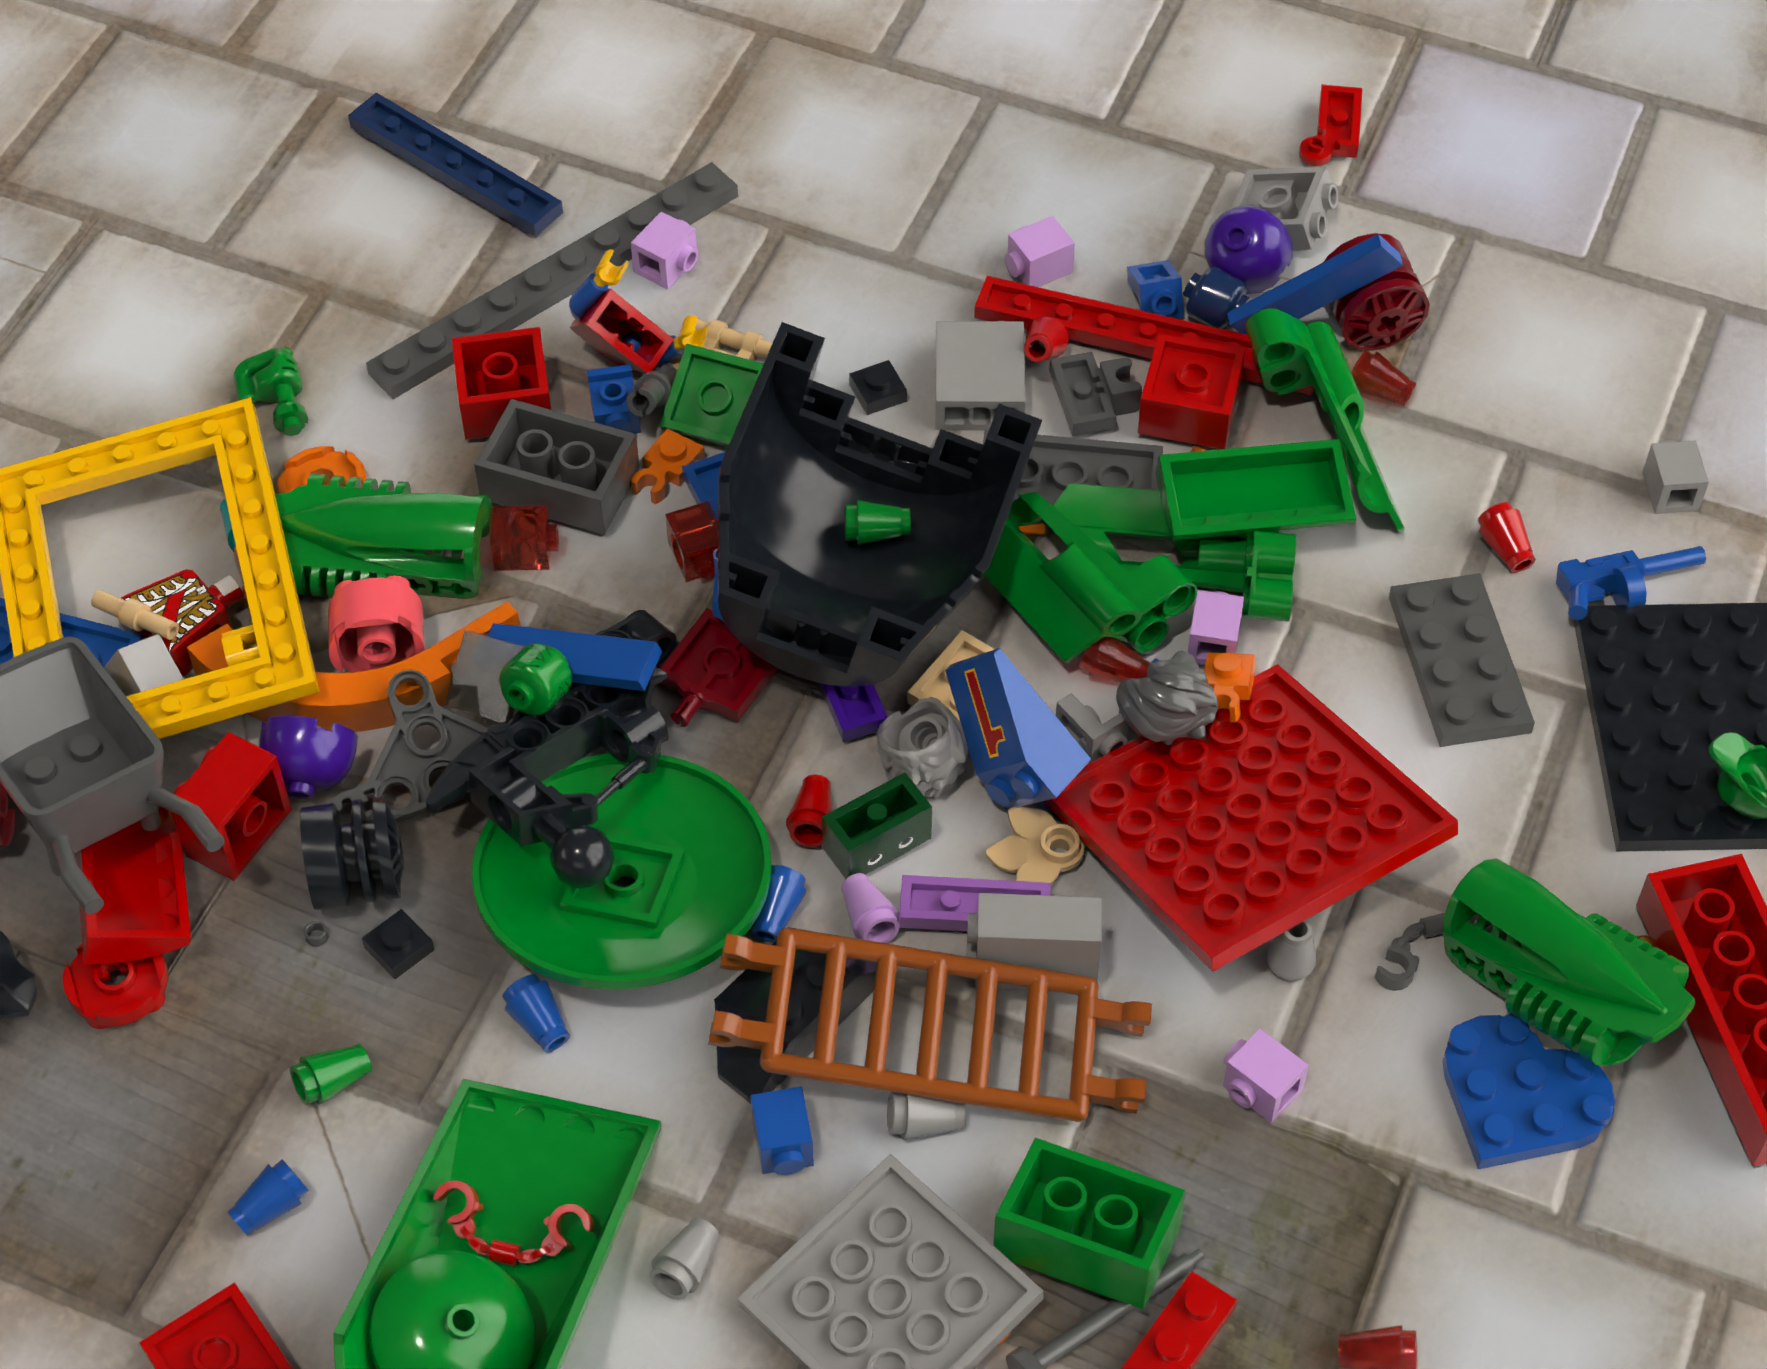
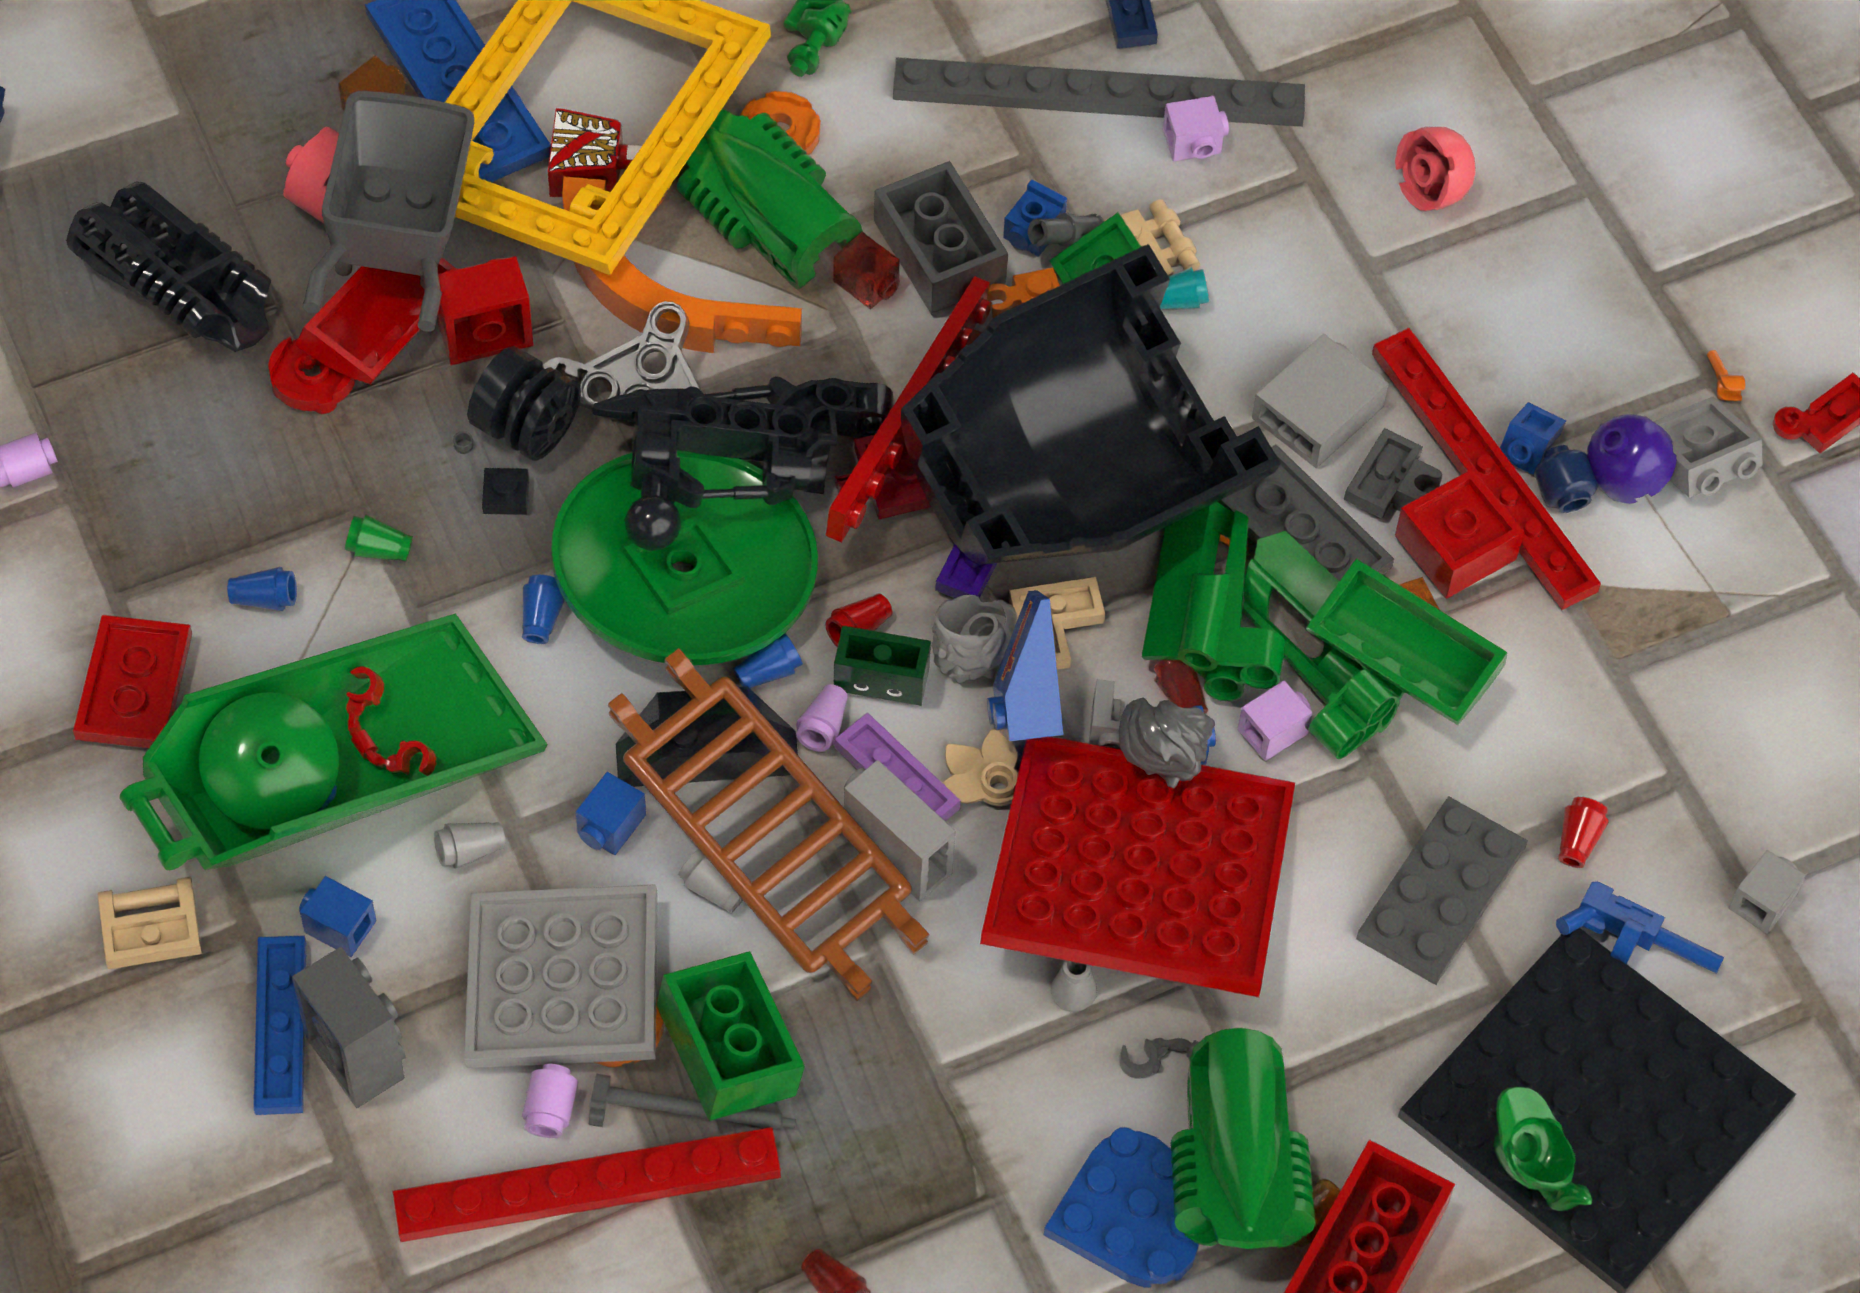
camera: 40 degrees right, 5 degrees up
(135, 614) = (549, 127): tan bar -> none
(143, 666) = (523, 170): light grey brick -> none
(309, 754) = (566, 314): dark purple cylinder -> none
(374, 623) = (698, 256): coral brick -> none
(476, 677) = (729, 351): clear smoke piece -> none
(494, 371) = (973, 136): red brick -> none
(535, 679) = (743, 376): green head -> none
(591, 657) = (790, 379): blue tile -> none
(622, 330) = (1085, 165): red torso -> none
(688, 623) = (886, 446): none -> red plate
(875, 522) = (1116, 449): green cone -> none
(878, 387) = (1241, 352): black plate -> none
(879, 150) = (1435, 167): none -> coral cylinder
(1040, 253) = (1470, 340): lavender brick -> none
(1051, 333) = (1394, 410): red cone -> none
(1231, 678) = (1241, 762): orange plate -> none
(1243, 158) = (1728, 386): none -> orange hand
(1263, 1075) = (959, 1047): lavender brick -> none
(1303, 355) = (1560, 625): green panel -> none
(1324, 282) = (1625, 525): blue tile -> none
(1382, 379) = (1626, 638): clear red cone -> none
(1383, 309) = (1685, 565): dark red wheel -> none

